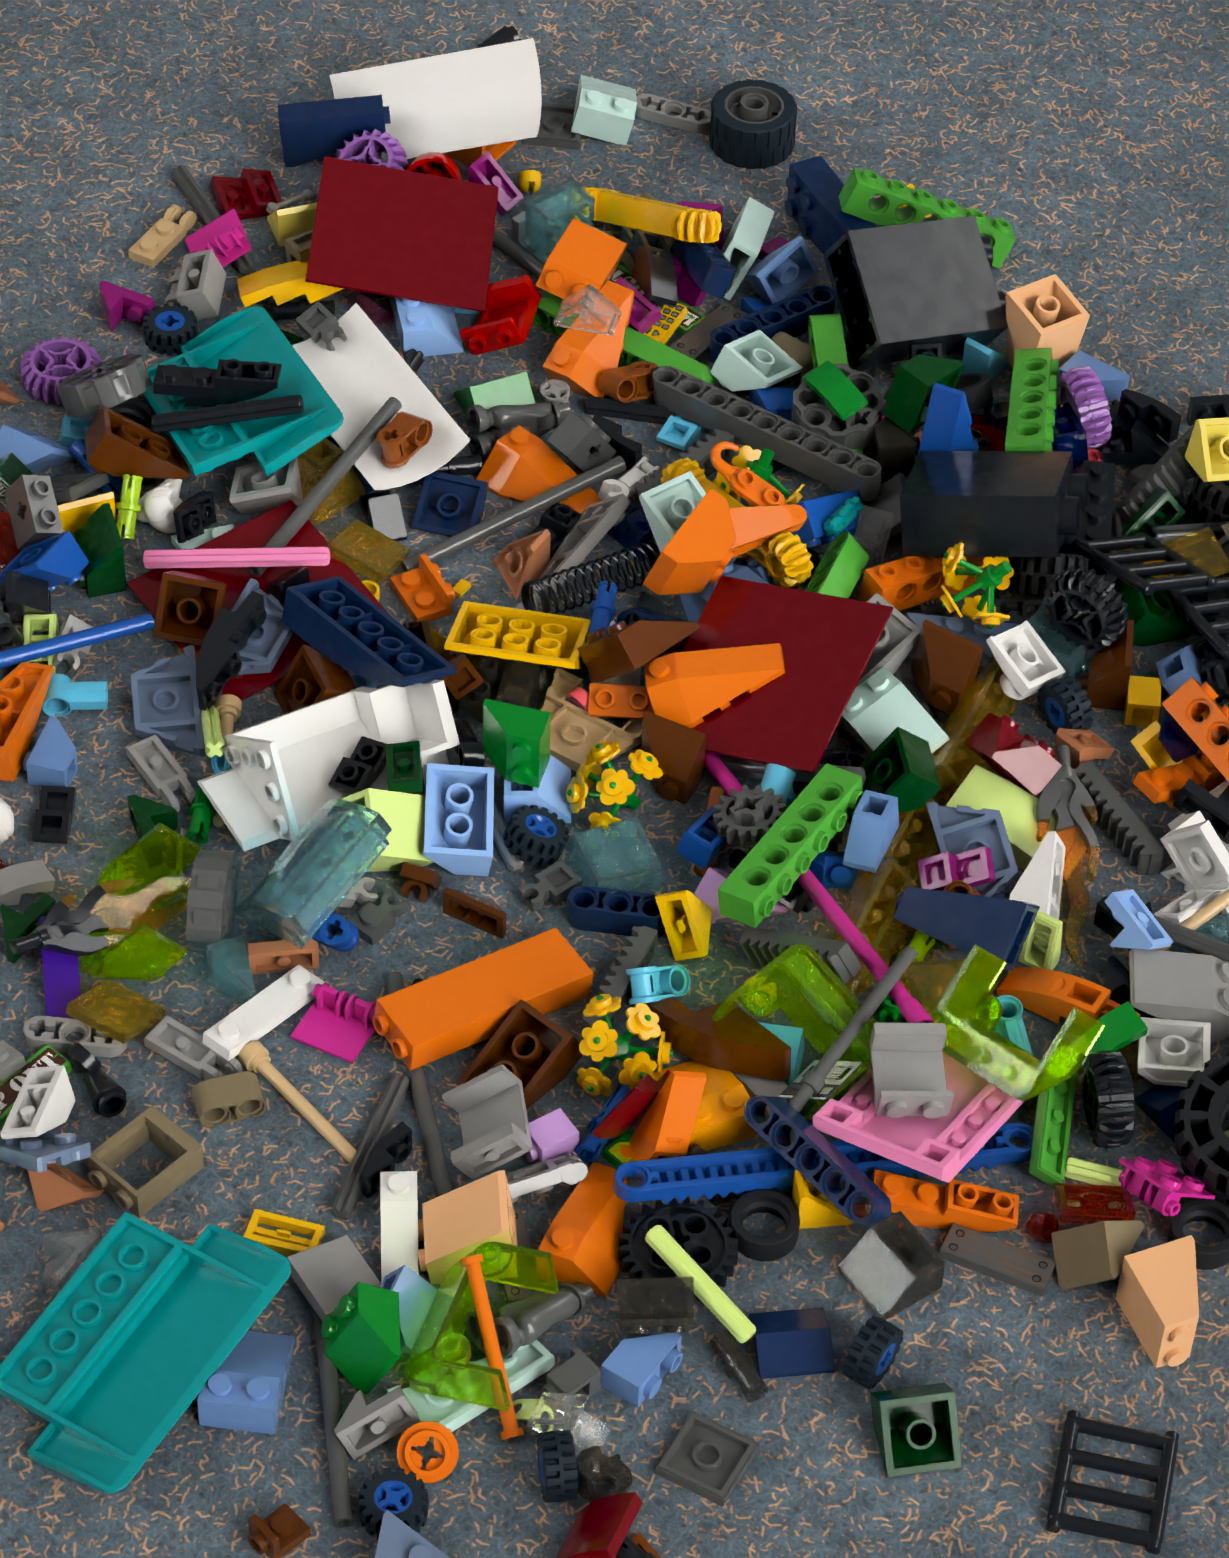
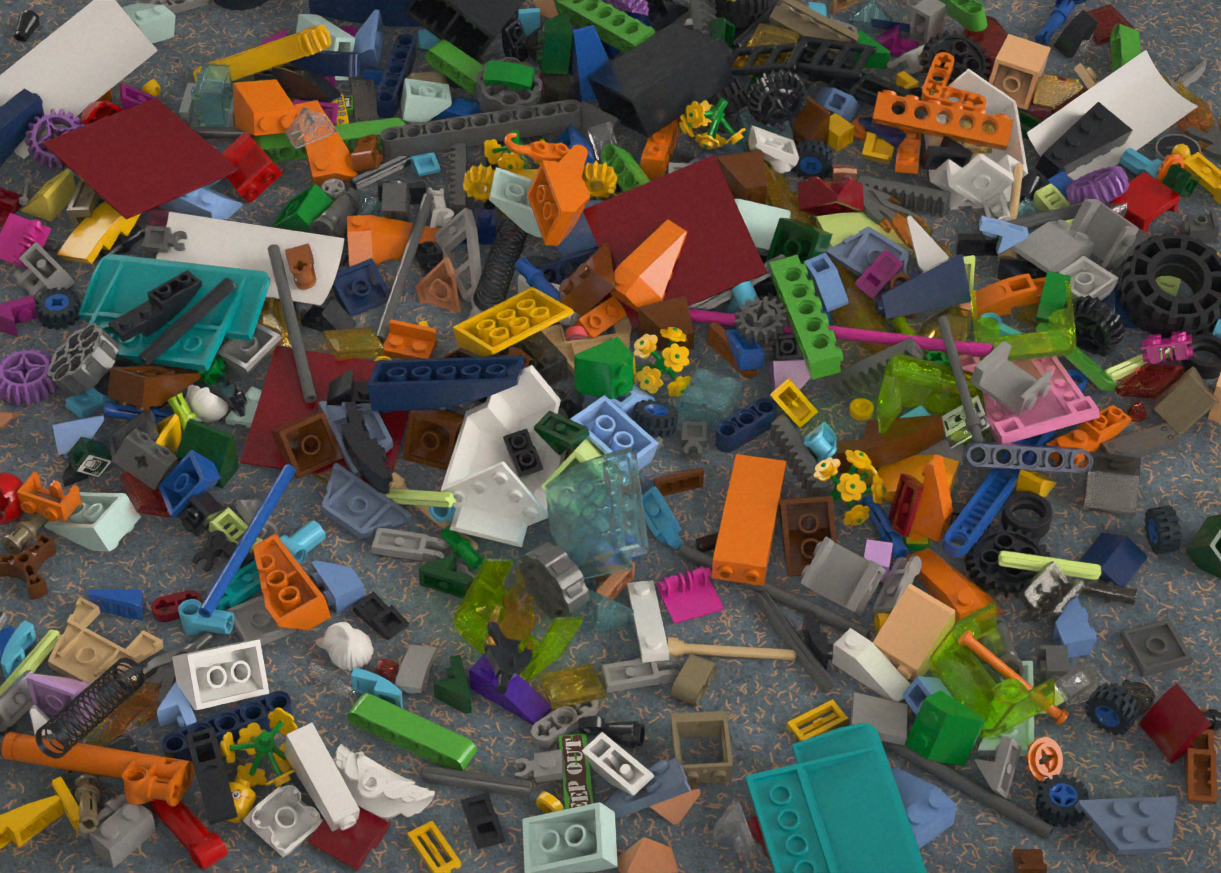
camera: 45 degrees left, 0 degrees up
(216, 481) = (215, 371): none -> green gear
(236, 557) = (296, 397): bright pink axle -> none
(411, 931) = (661, 518): none -> dark azure hinge
(843, 516) = (590, 140): teal axle -> none

